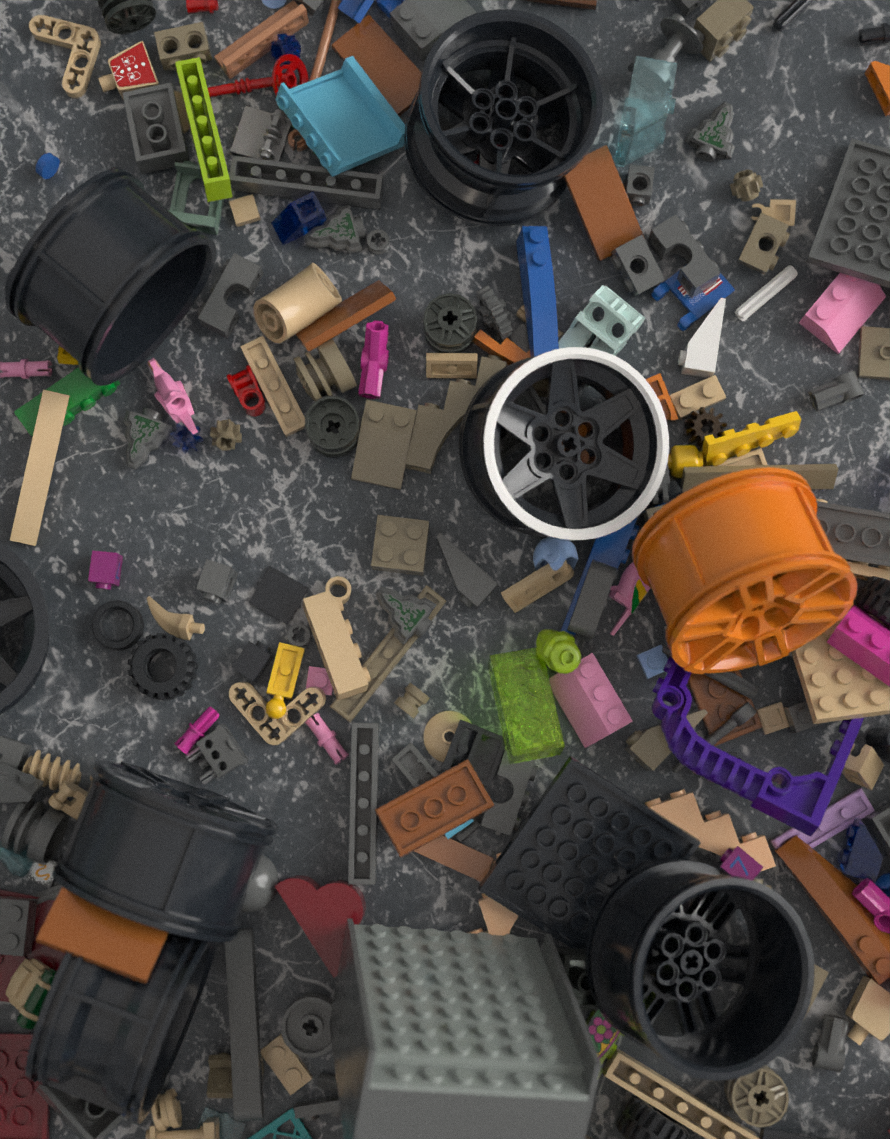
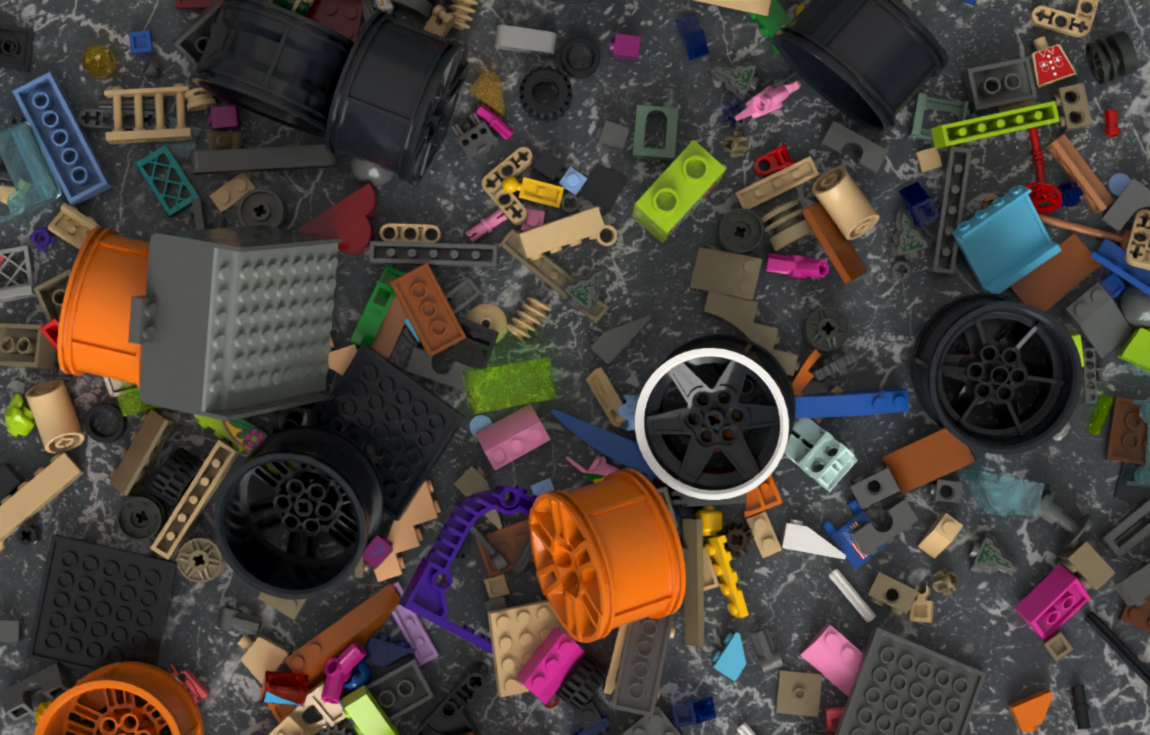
camera: 90 degrees right, 5 degrees up
(93, 490) = (692, 36): none -> clear blue slope
(95, 693) = (525, 40): none -> light grey beam
(101, 937) = (329, 49): dark orange tile -> none
(159, 736) = (489, 91): none -> clear yellow slope
(173, 623) = (580, 105): tan bar -> none
(188, 548) = (639, 150): none -> sand green panel
(191, 1077) = (224, 118): none -> magenta brick
(261, 134) = (994, 173): light grey hinge -> none
(271, 632) = (572, 181): none -> light blue plate
(285, 495) = (678, 191): none -> lime brick
(332, 845) = (401, 229): none -> tan beam
(400, 545) = (642, 286): dark tan brick -> none
(411, 700) = (515, 294): dark tan wheel -> none
(432, 874) = (376, 308): none -> green slope
(442, 684) = (527, 318): none -> tan piece
(451, 365) = (792, 330): tan plate -> none
(558, 650) = (552, 411): lime head -> none
(559, 19) = (1100, 415): none -> clear neon green axle
(573, 744) = (479, 423): none -> light blue sticker
(592, 599) = (593, 440): dark grey beam -> none
(690, 191) = (940, 535): none -> tan slope
(764, 65) = (1052, 602): none -> dark pink slope
(816, 59) = (1057, 646): none -> dark tan plate
(847, 431) = (731, 658): none -> medium azure slope
(863, 768) = (454, 656): tan hinge -> none

